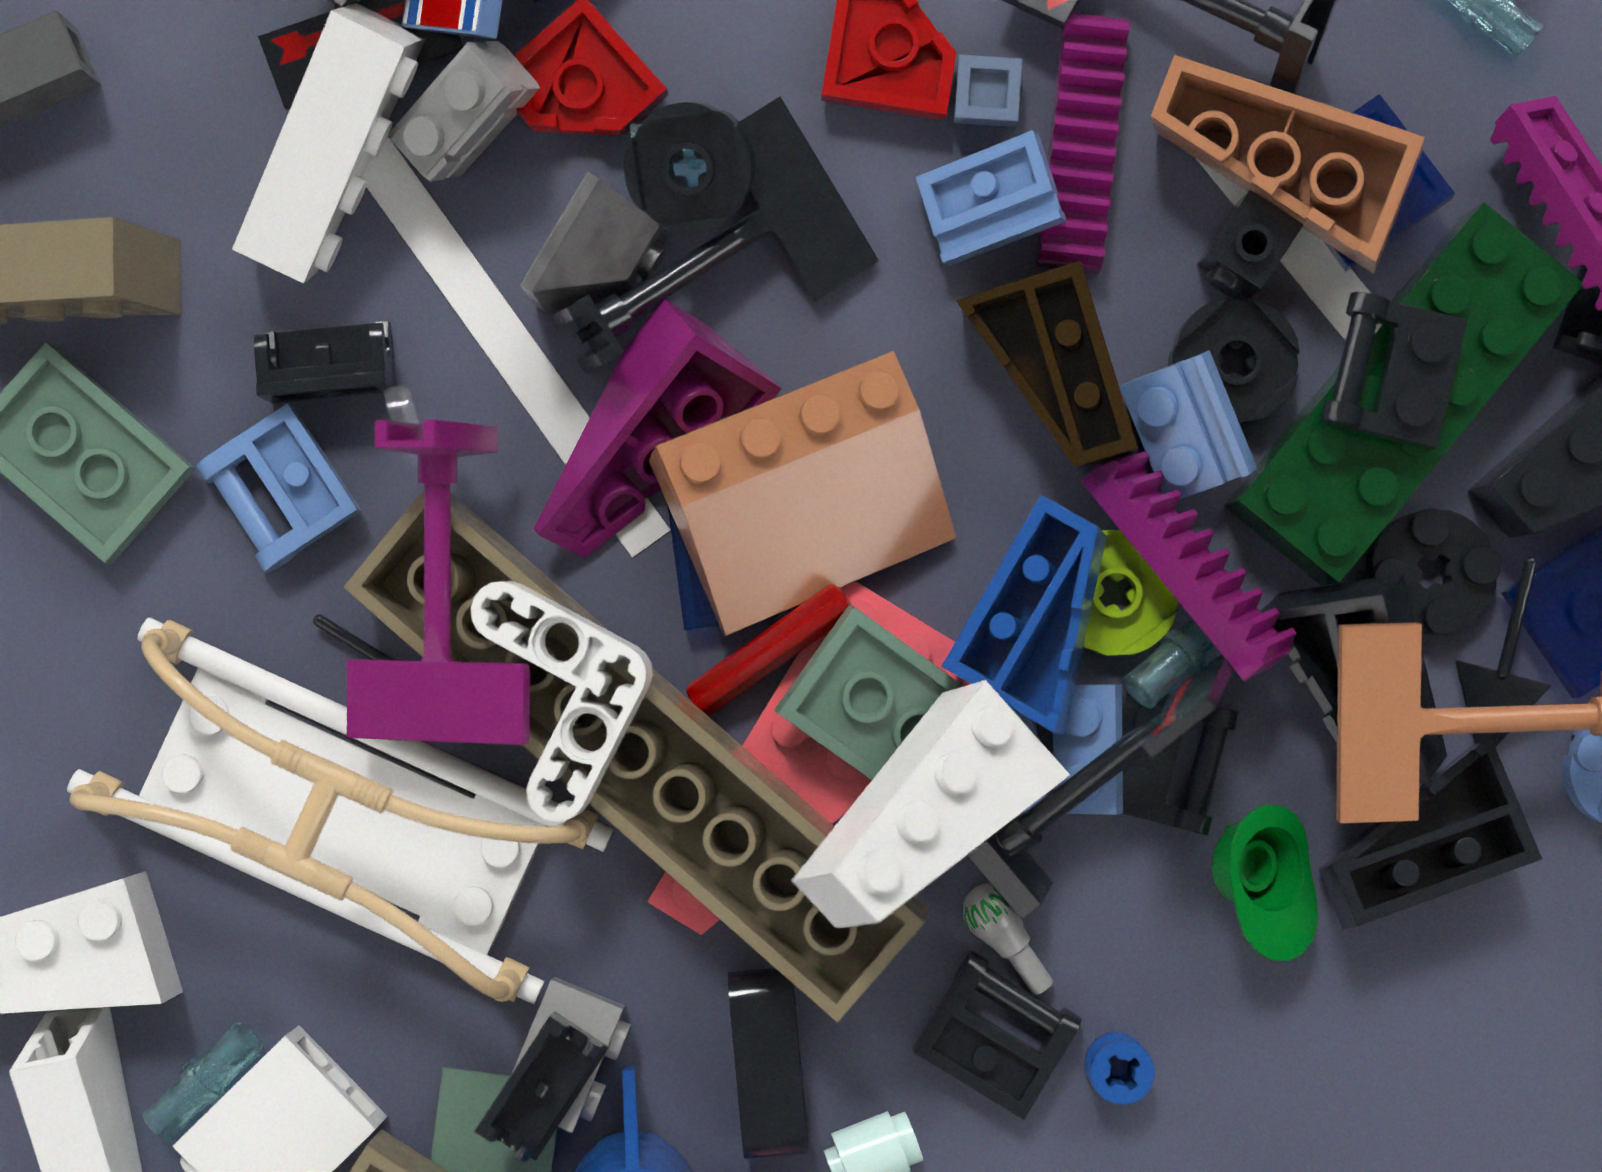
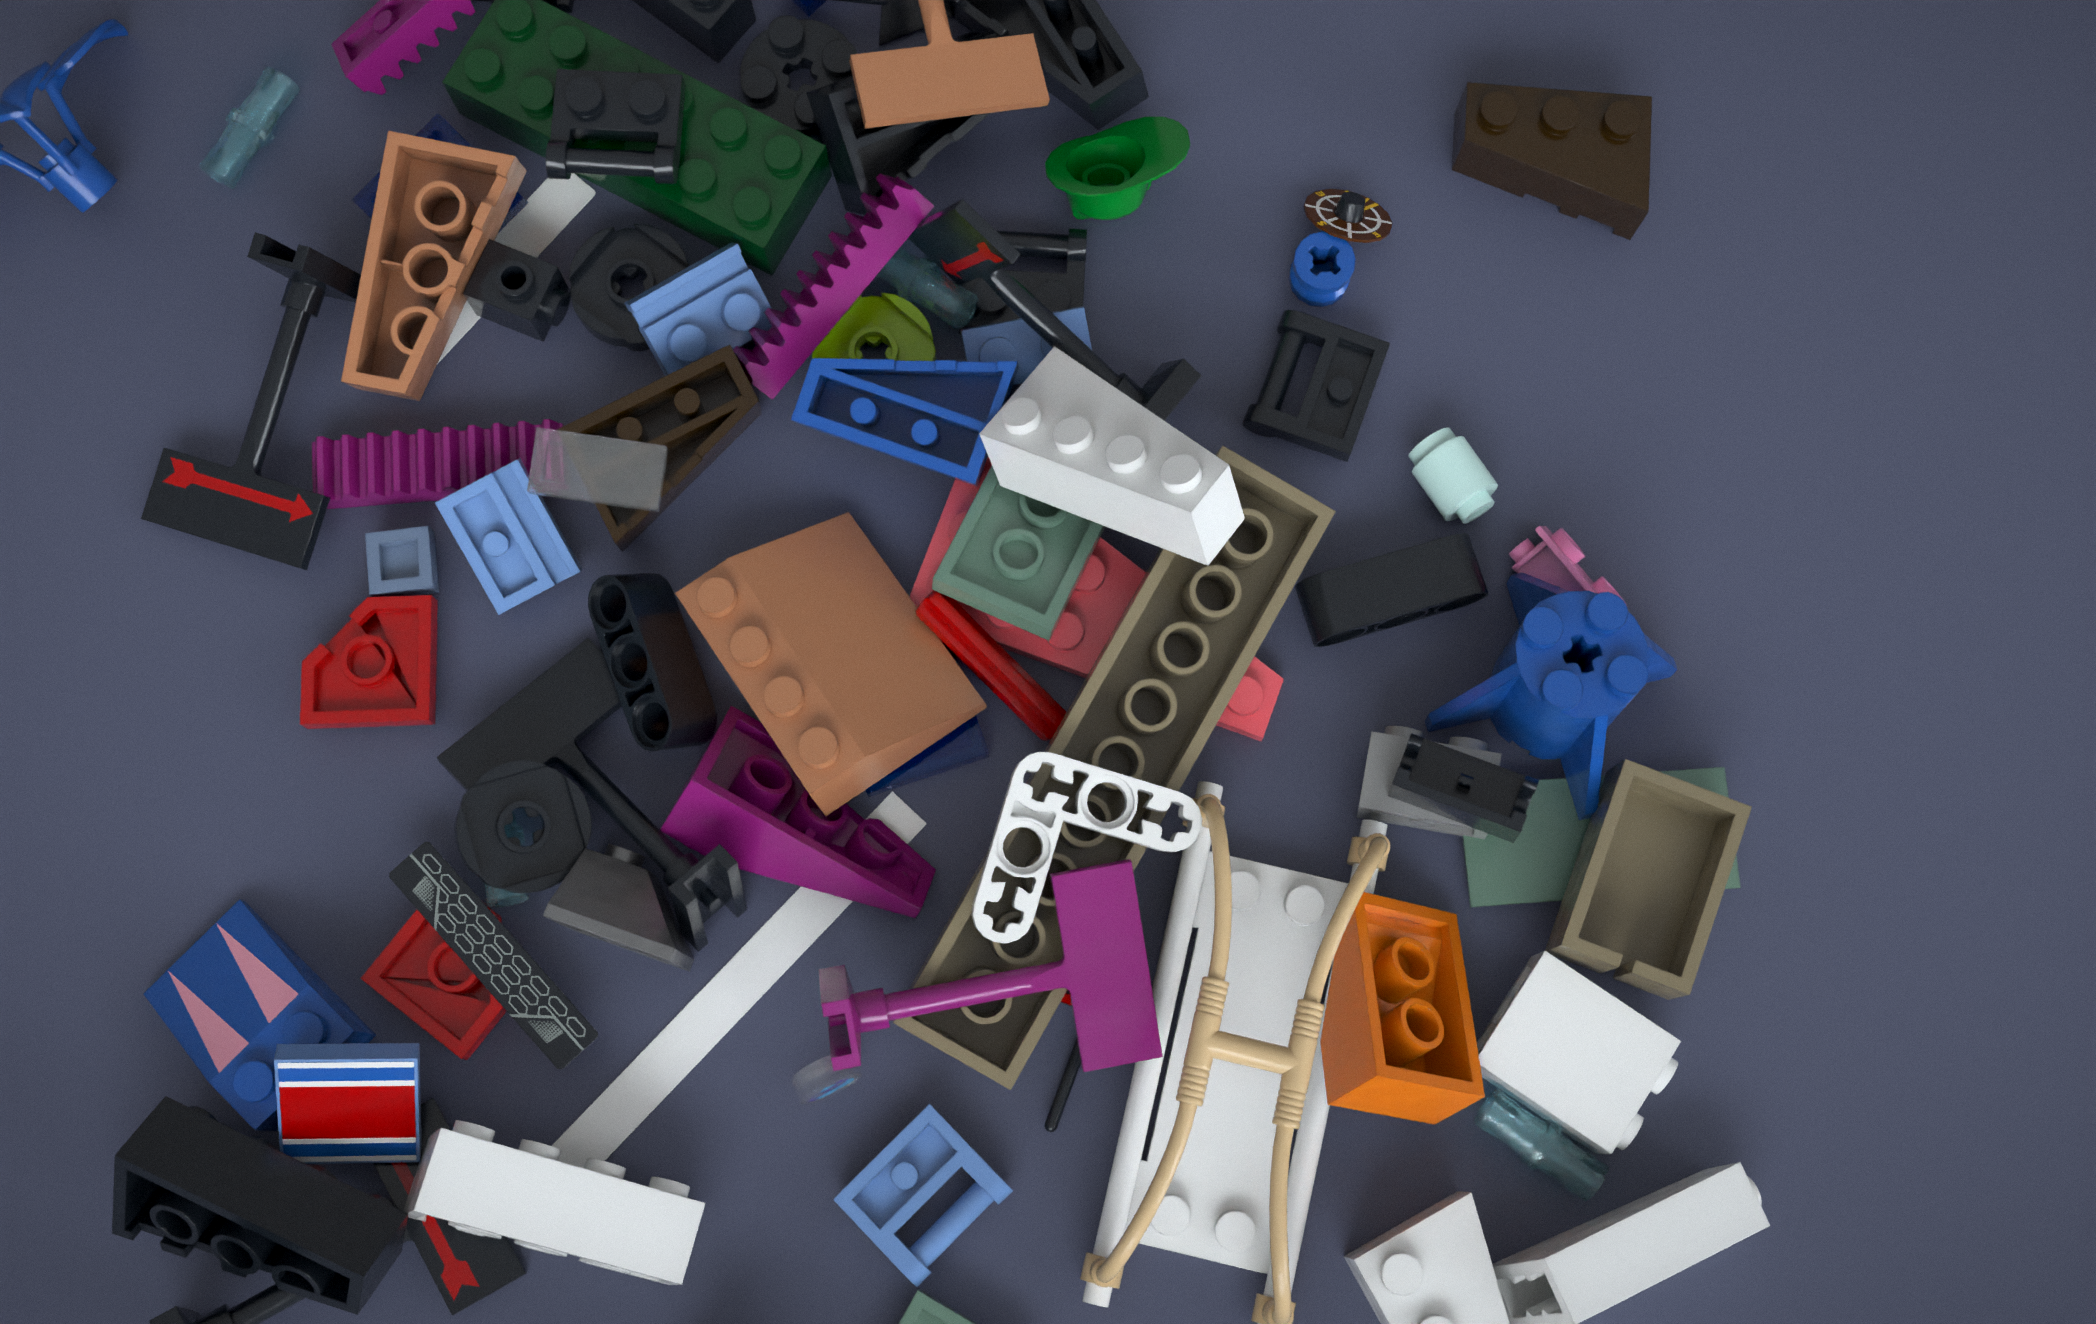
camera: 100 degrees left, 10 degrees down
(324, 362) = (783, 1170): black hinge -> none
(343, 977) = (1400, 1015): none -> orange slope
(463, 110) = (498, 1071): light grey brick -> none
(580, 122) = (493, 955): none -> black sticker
(836, 318) = (652, 661): none -> black beam
(1002, 929) = (1211, 401): light grey piece -> none
(1029, 294) = (597, 469): none -> clear tile
(1171, 1108) = (1347, 215): none -> piece

